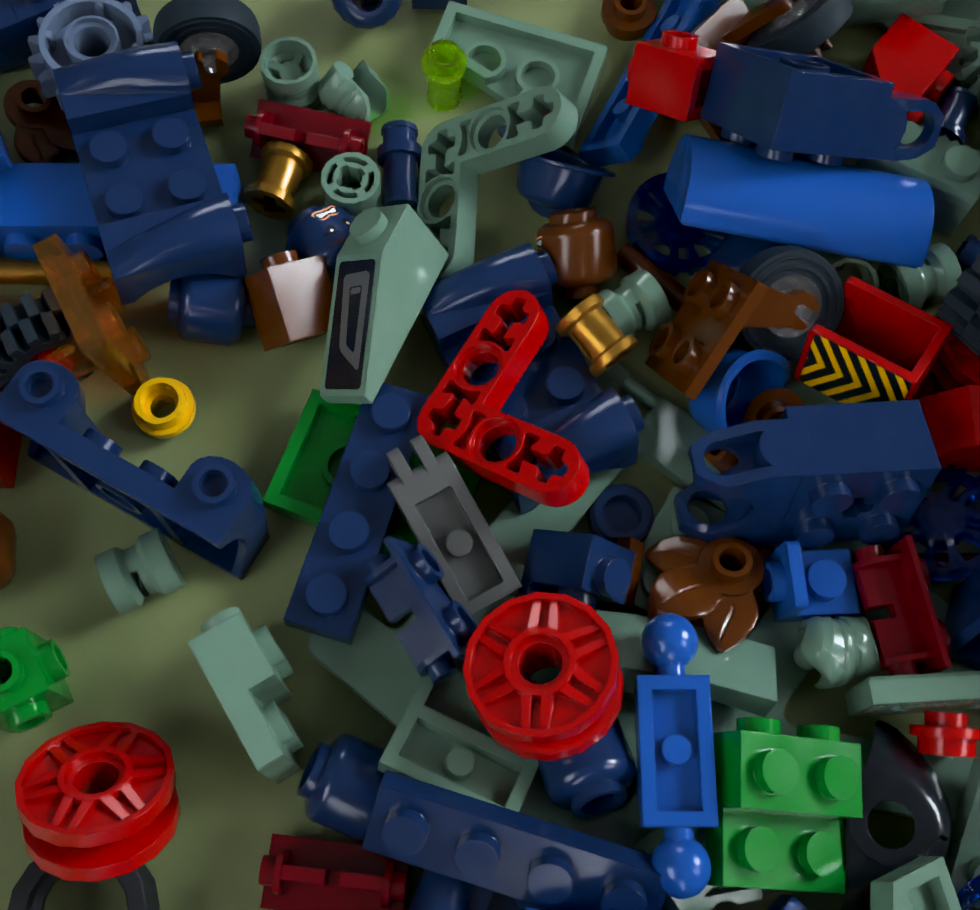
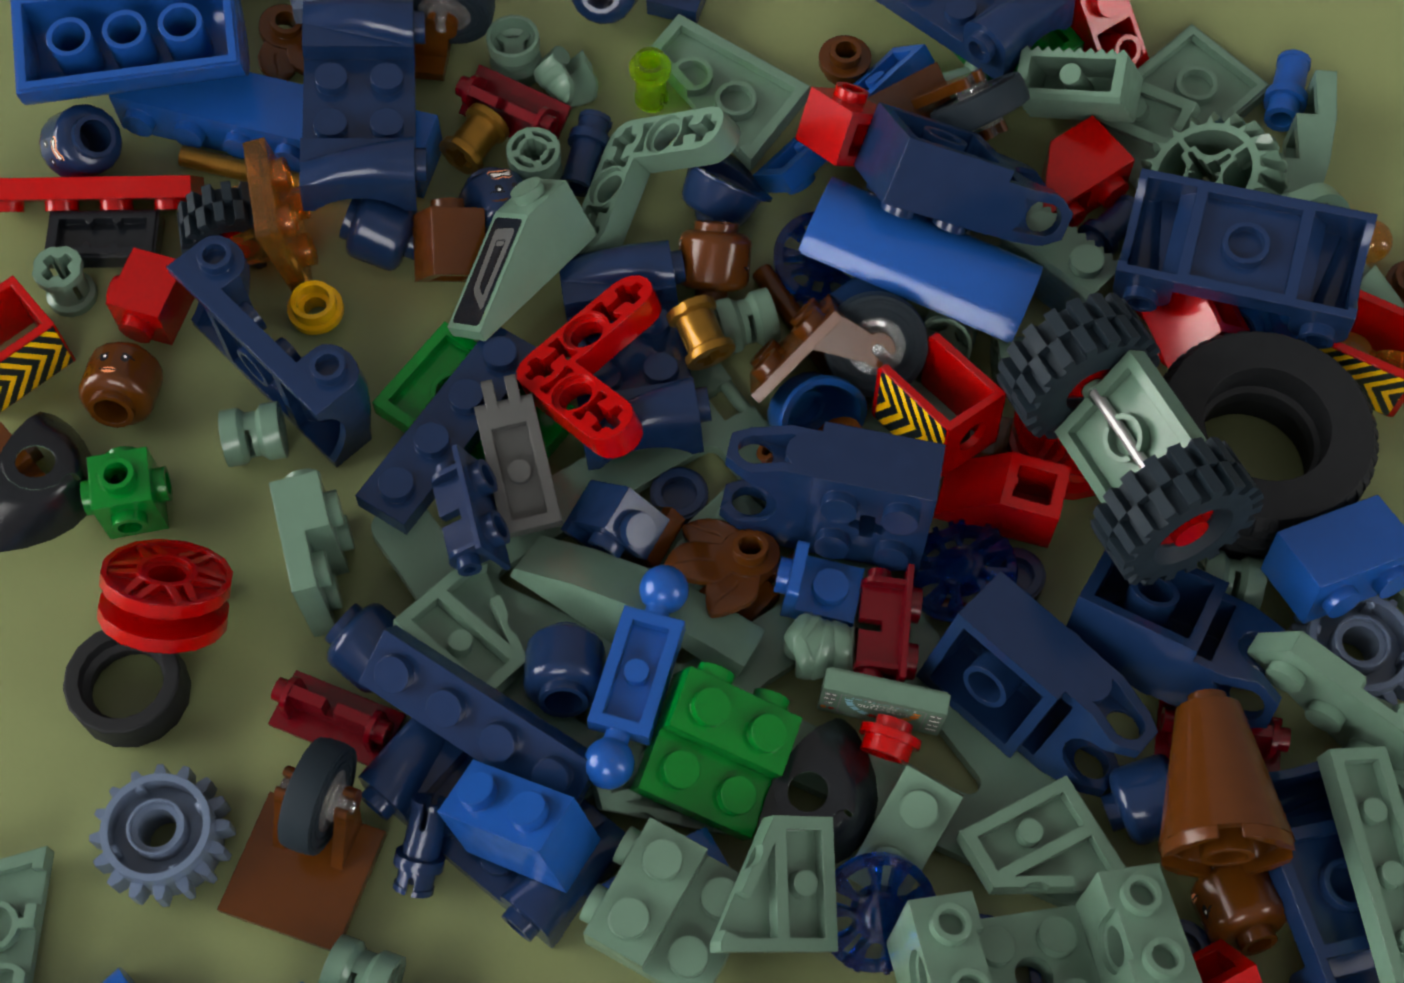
camera: 20 degrees right, 5 degrees down
(551, 717) = (546, 584): red wheel -> none

